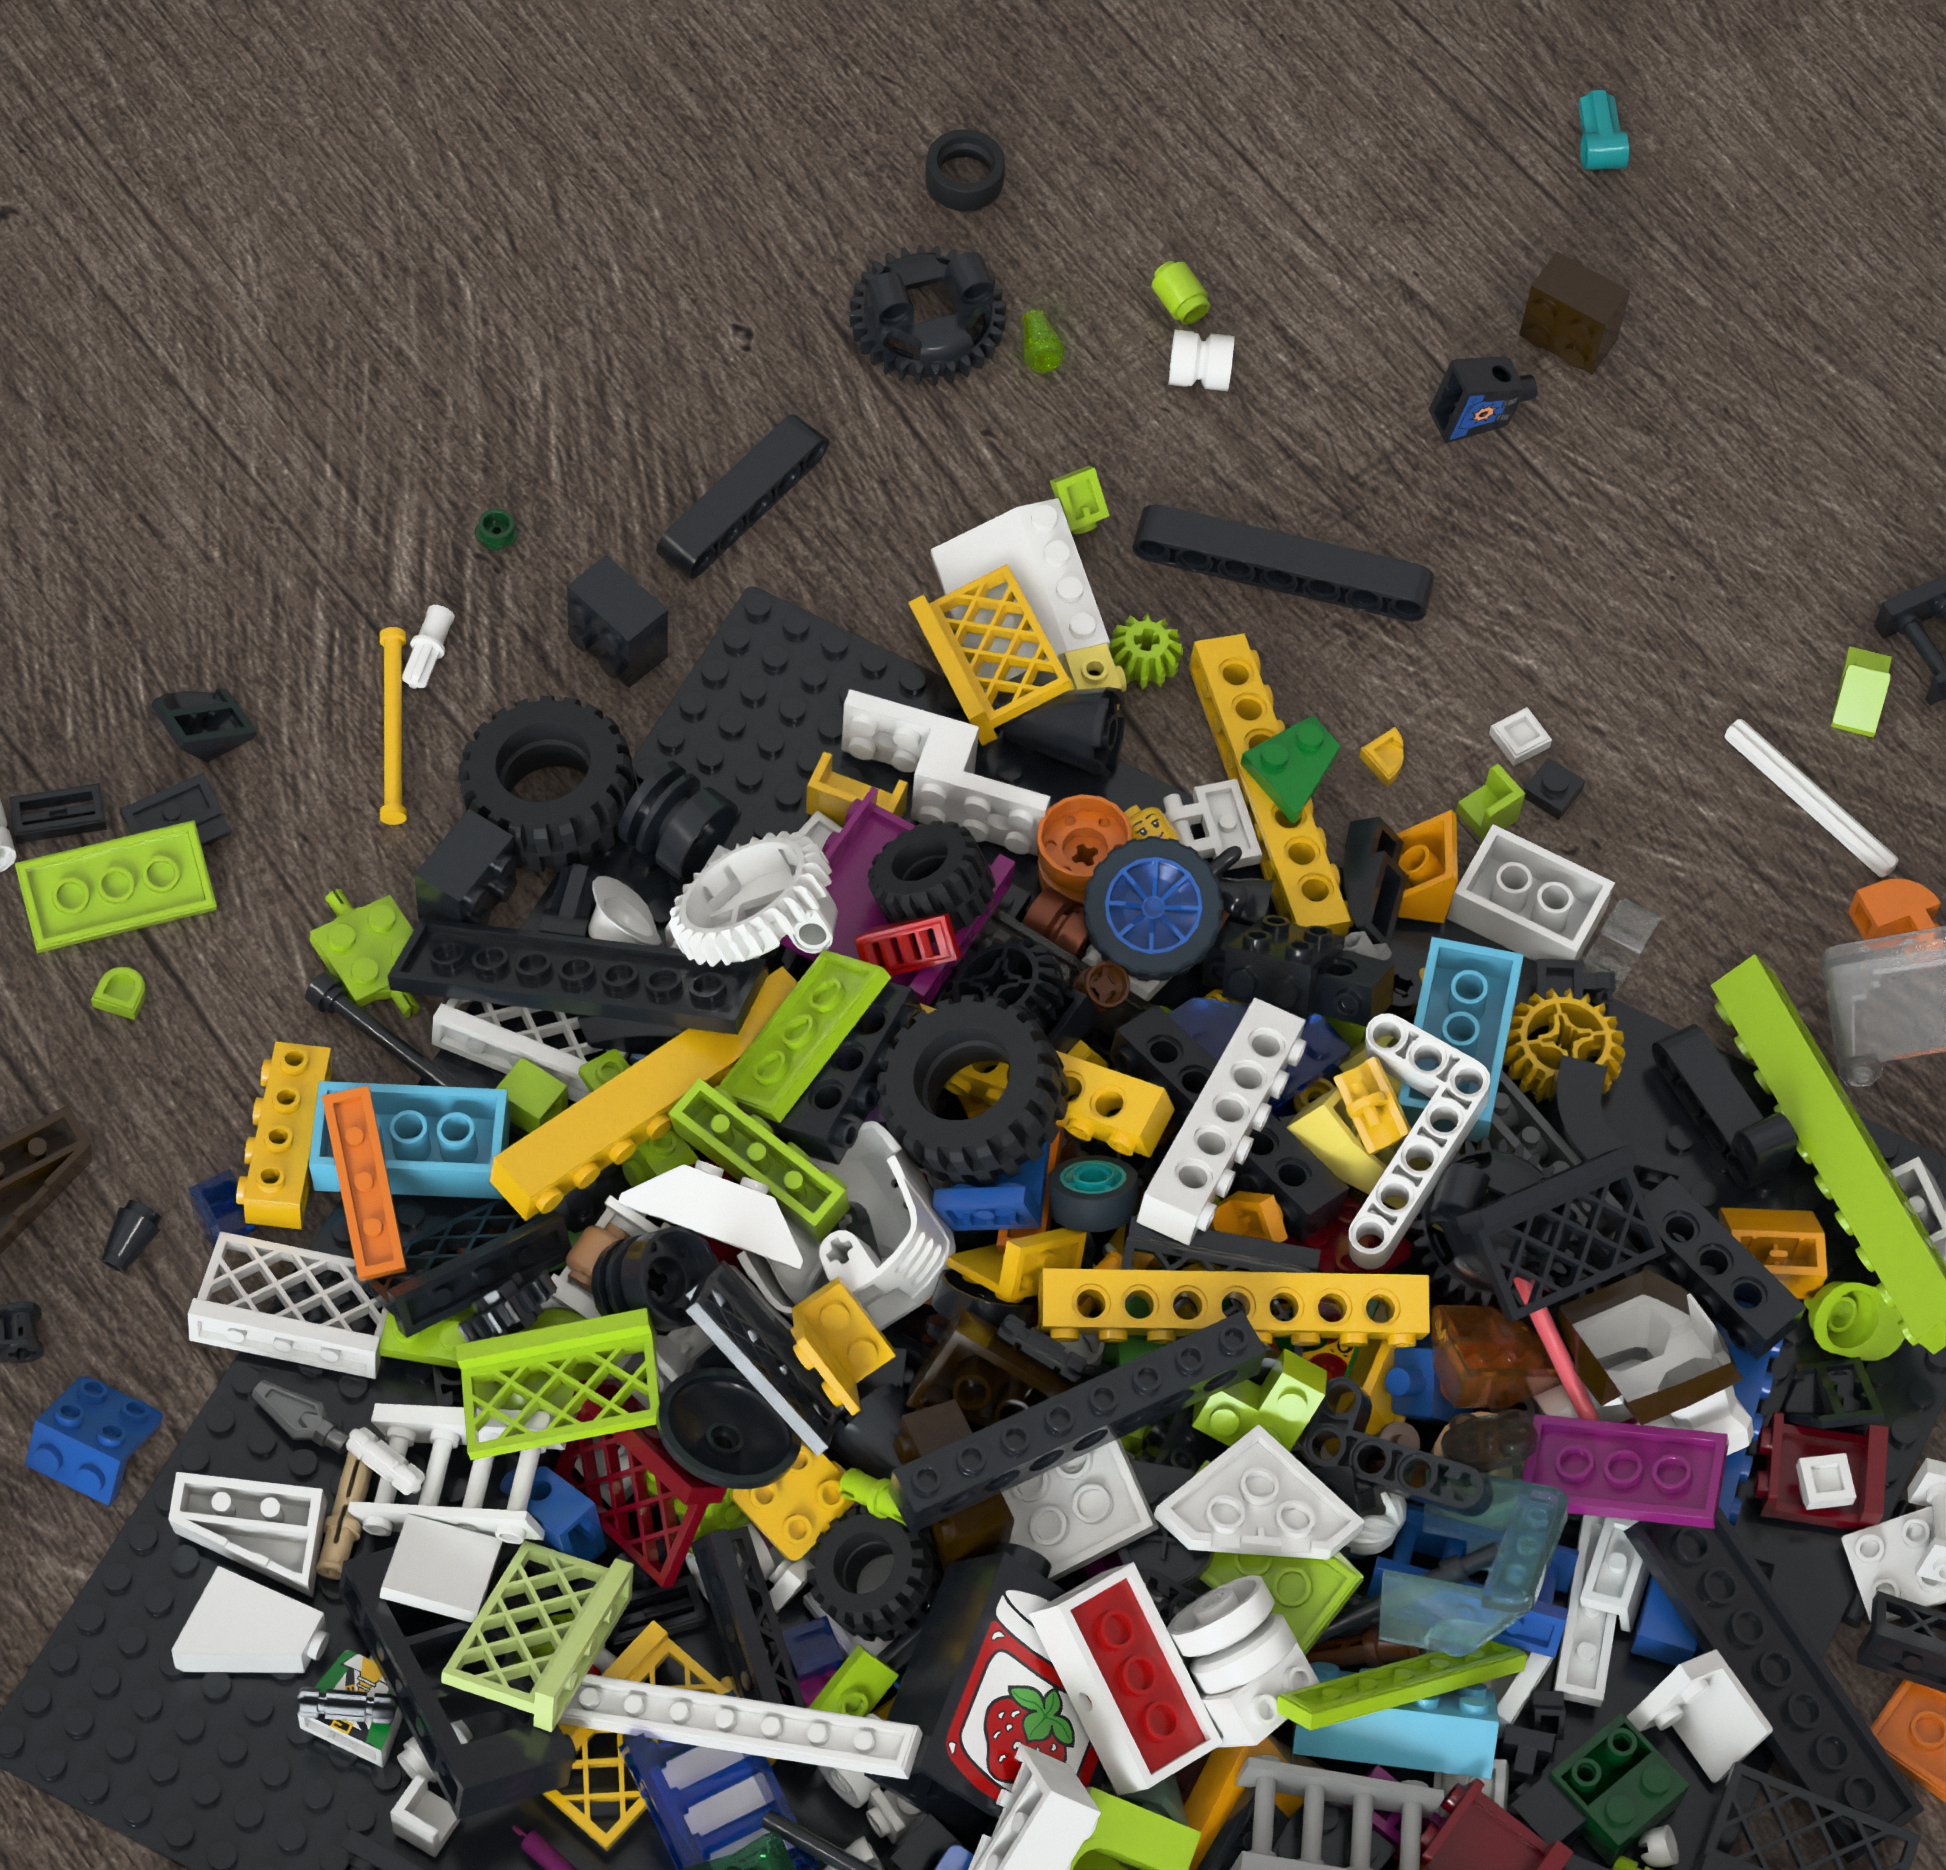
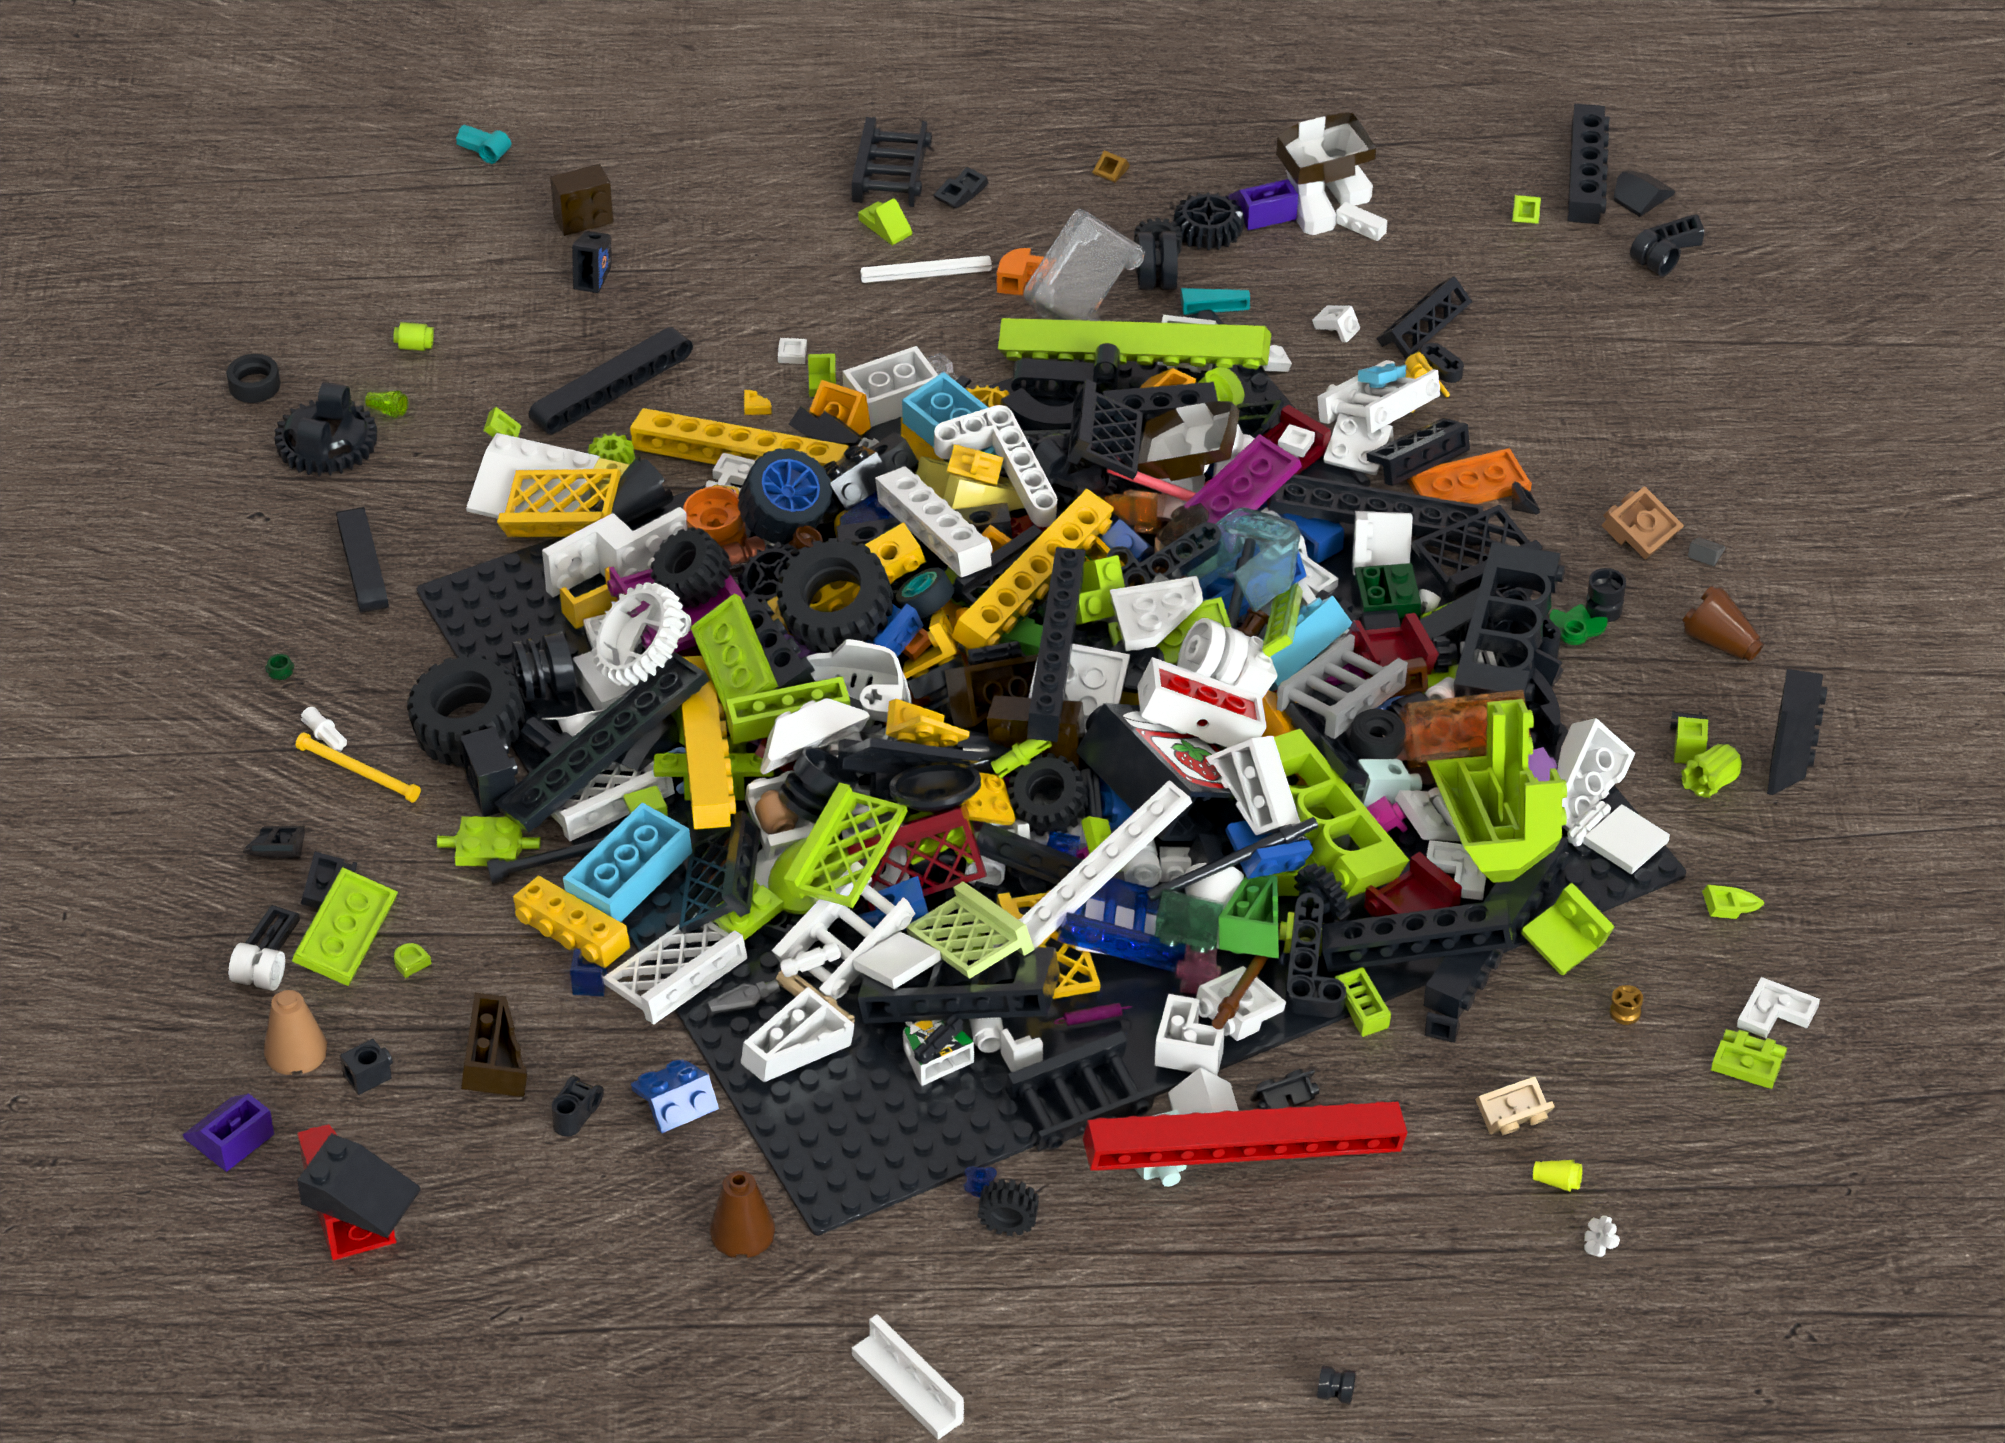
camera: 50 degrees left, 15 degrees down
(130, 1234) = (565, 1019): black cone -> none
(249, 1630) = (851, 1071): white slope -> none
(364, 1183) = (646, 882): orange plate -> none
(507, 1306) = (776, 853): black gear -> none
(617, 622) = (394, 637): black brick -> none
(878, 946) = (706, 594): red slope -> none
(1201, 360) = (464, 347): white wheel -> none
(1292, 764) = (741, 422): green wing -> none
(1553, 788) = (835, 347): black plate -> none

